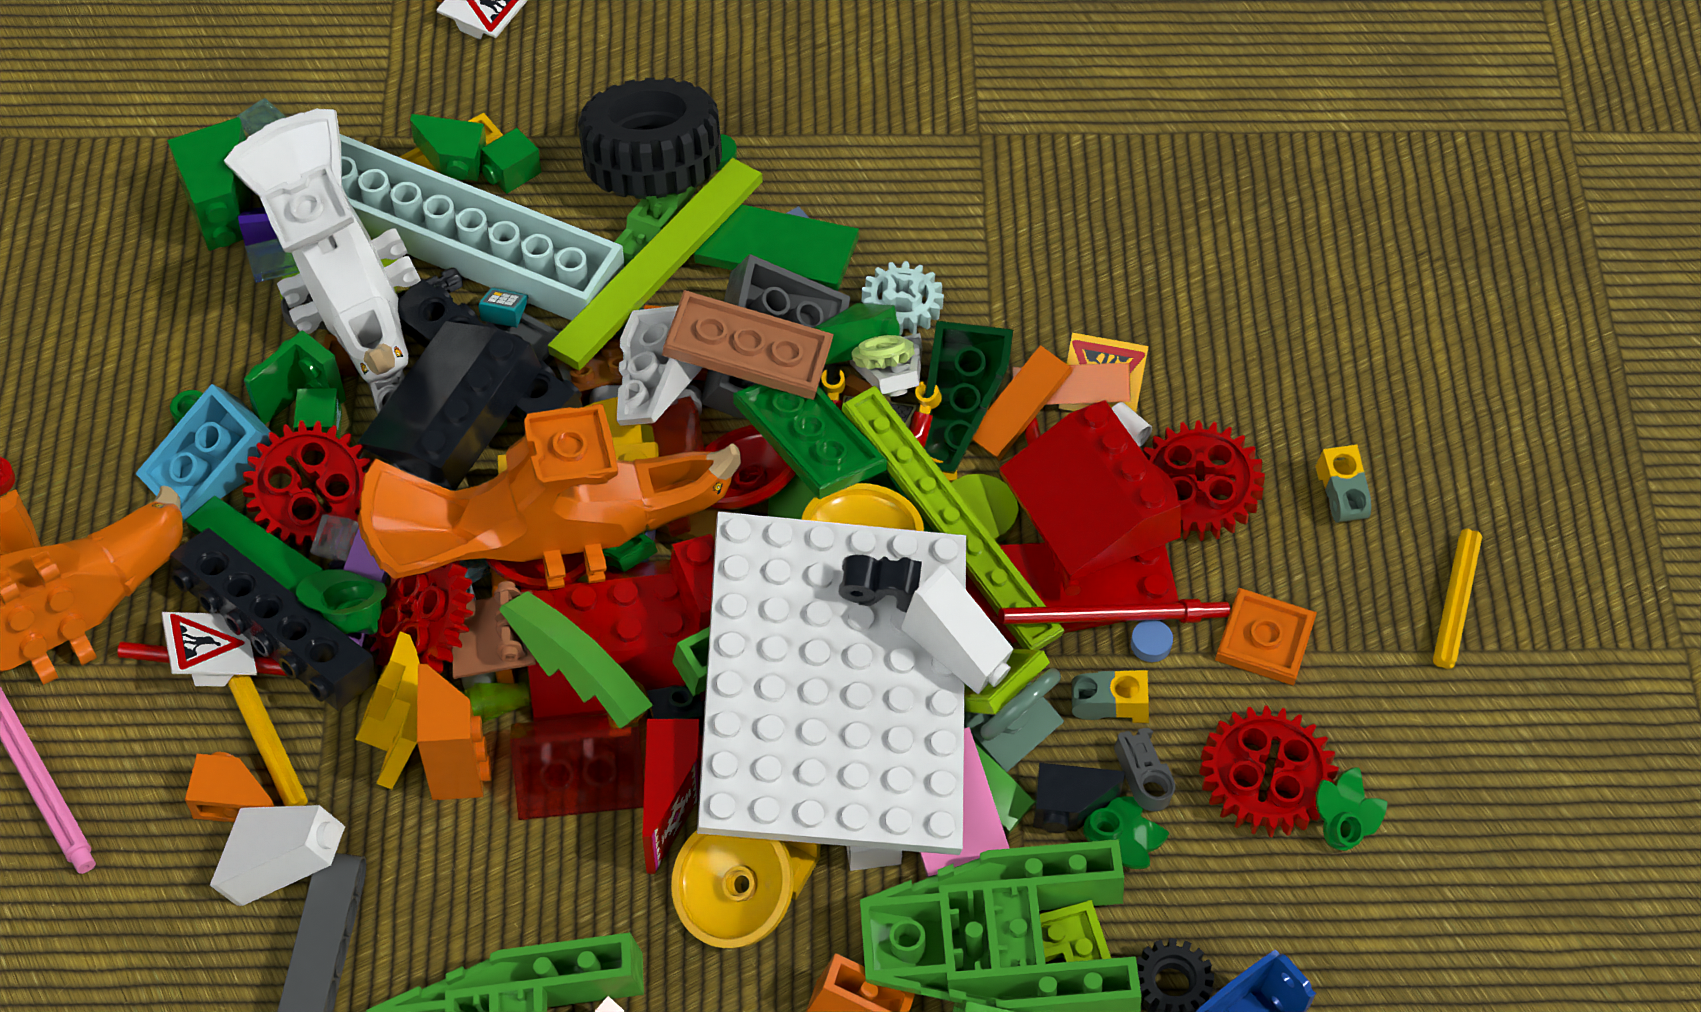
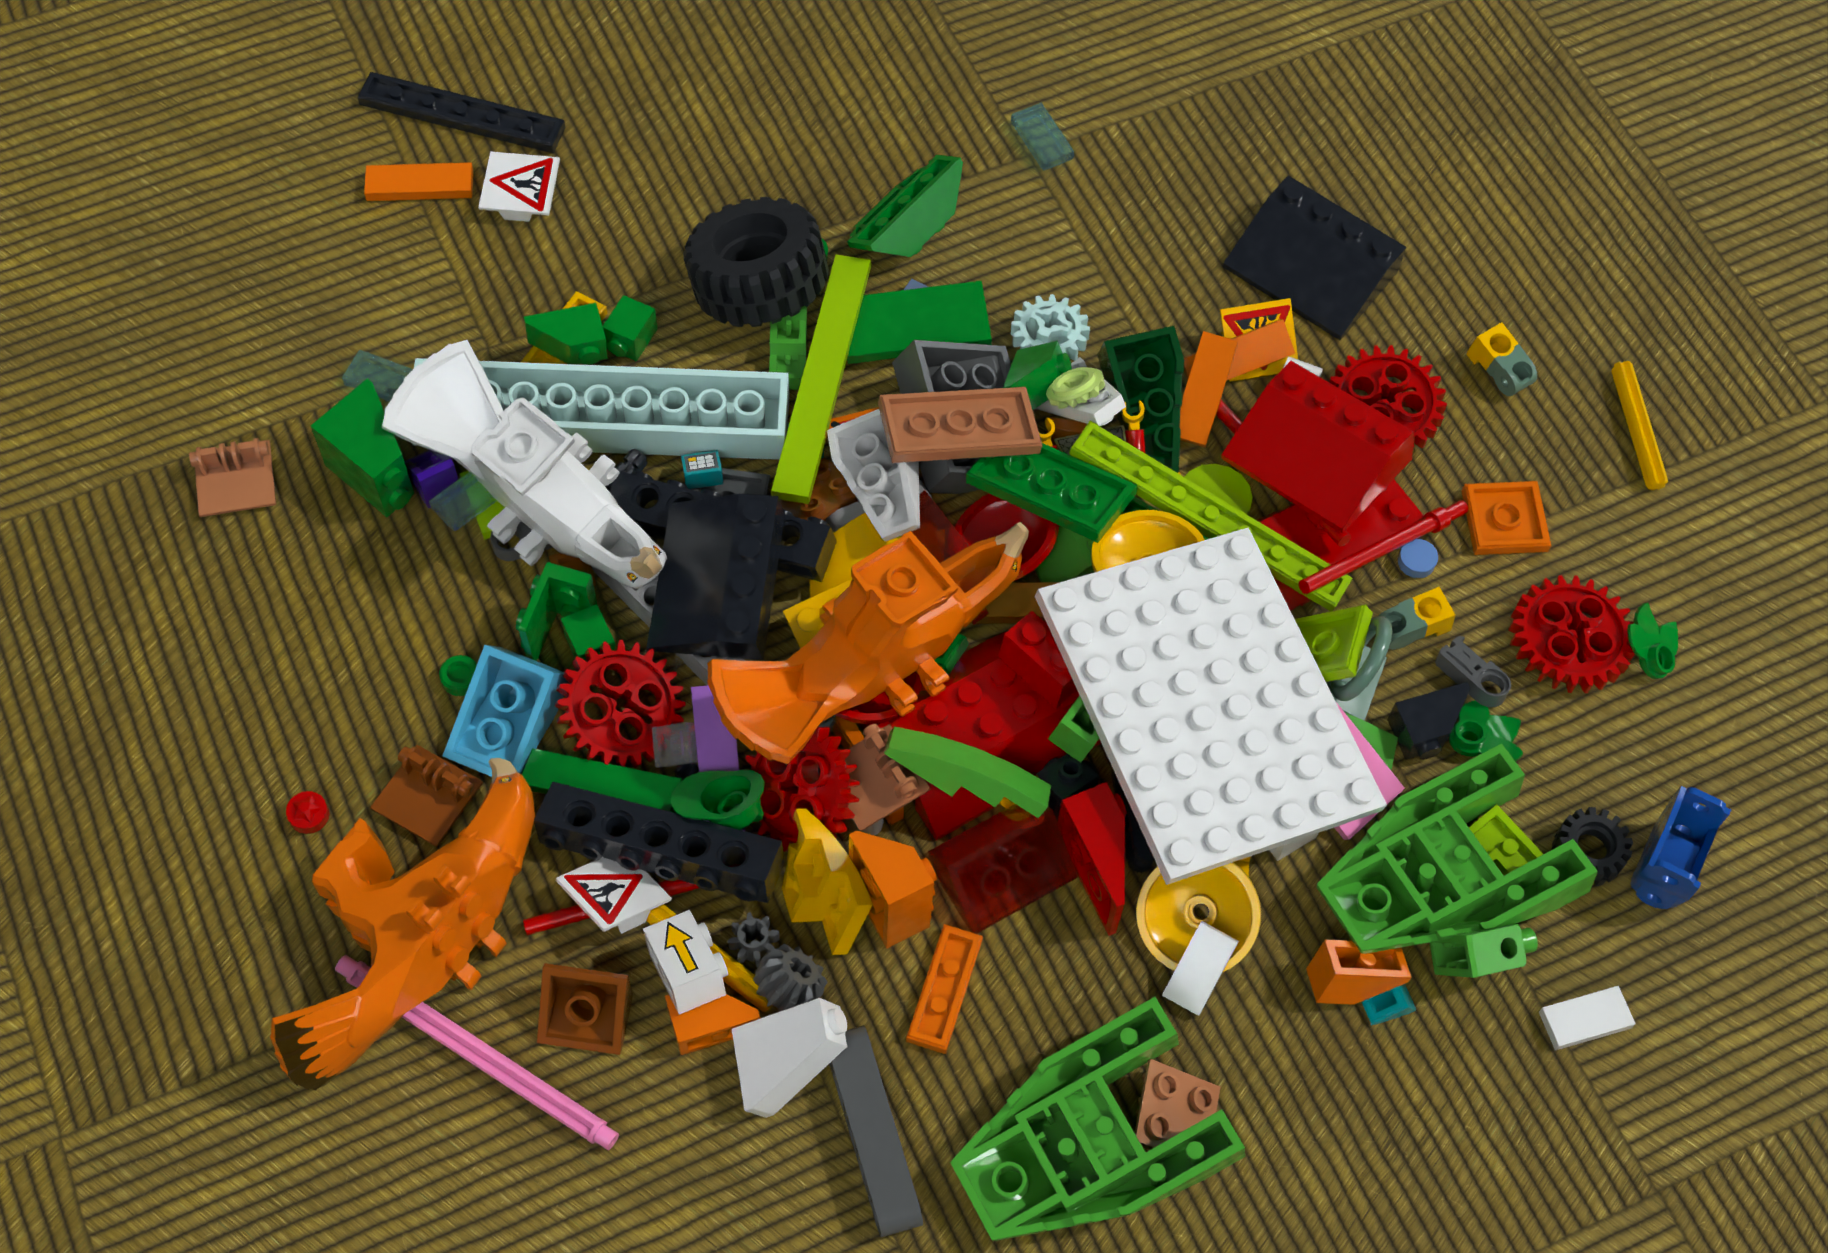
camera: 25 degrees left, 5 degrees up
(96, 167) = (233, 477): none -> nougat hinge
(99, 495) = (426, 794): none -> dark orange hinge
(126, 738) = (584, 1008): none -> dark orange slope
(228, 729) = (685, 961): none -> white brick
(310, 751) = (751, 929): none -> dark grey gear
(319, 781) = (789, 978): none -> dark grey gear
(462, 857) = (944, 989): none -> orange tile
(496, 699) = (902, 828): clear neon green cone -> none
(708, 934) = (1200, 968): none -> white tile
(828, 147) = (911, 210): none -> green wedge
(870, 580) = (1204, 600): black leg -> none
(957, 631) = (1299, 617): white slope -> none
(1000, 121) = (1042, 136): none -> clear light blue tile
(1206, 322) = (1316, 256): none -> black slope

